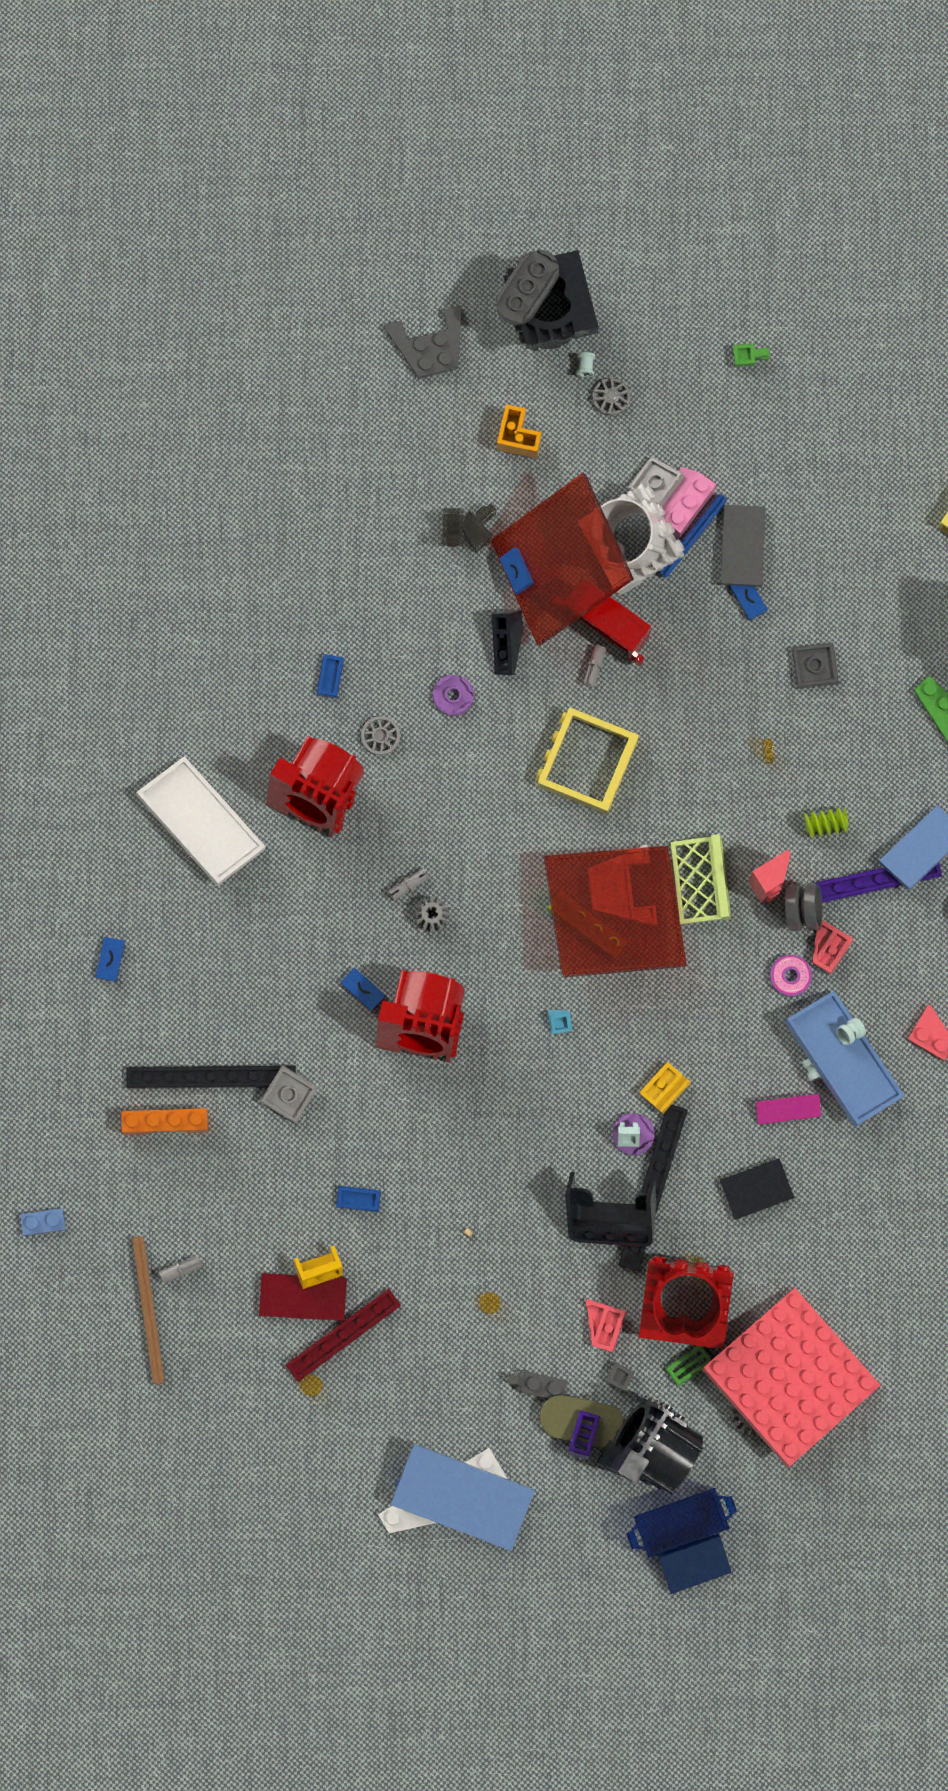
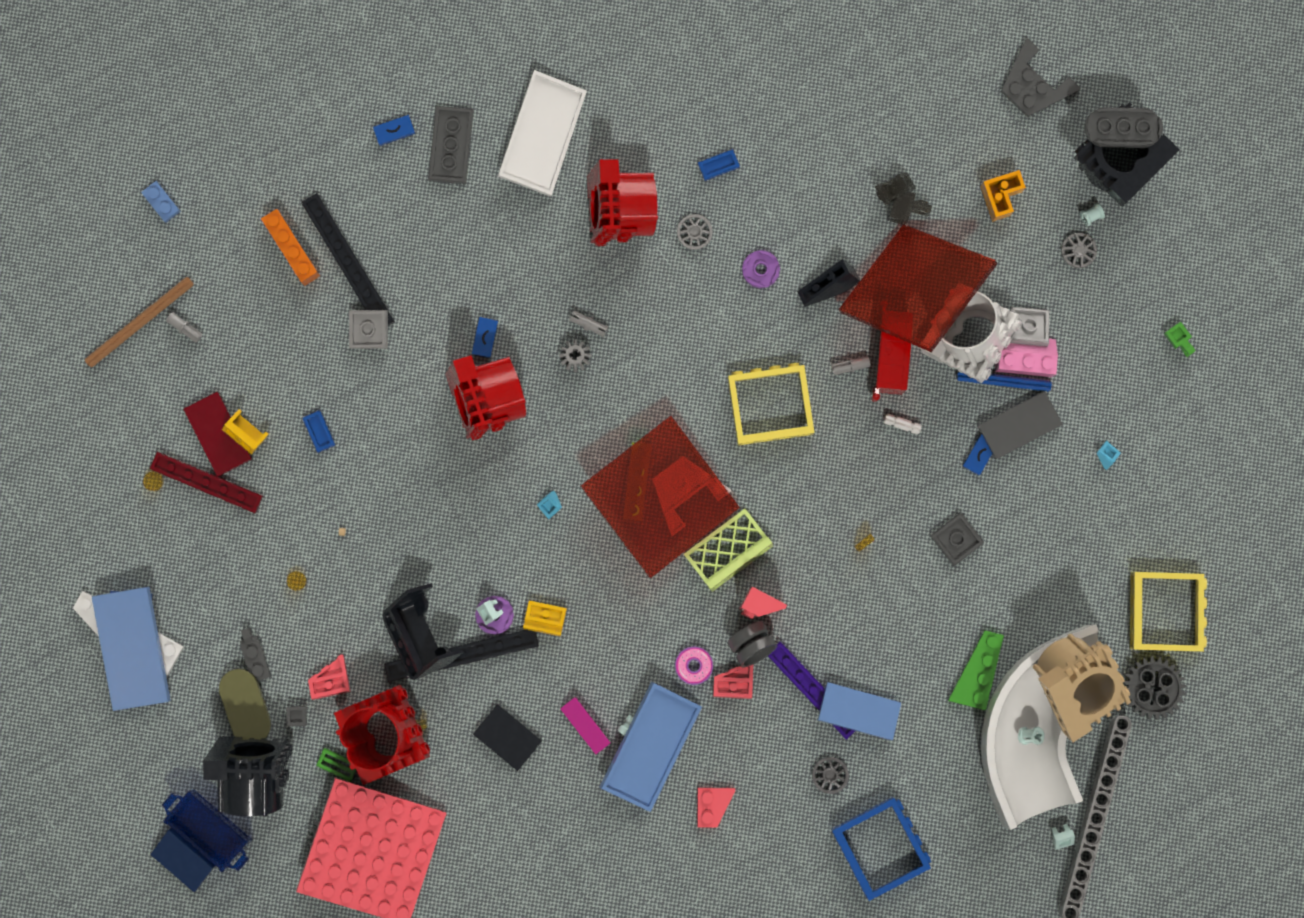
camera: 55 degrees right, 5 degrees up
(157, 914) = (451, 145): none -> dark grey tile
(516, 570) = (889, 258): blue tile -> none
(577, 1452) = (239, 705): dark purple slope -> none
(677, 651) = (902, 423): none -> white axle
(817, 483) = (1107, 454): none -> medium azure slope
(826, 823) = (833, 622): lime piece -> none
(850, 1032) = (674, 739): light aqua wheel -> none

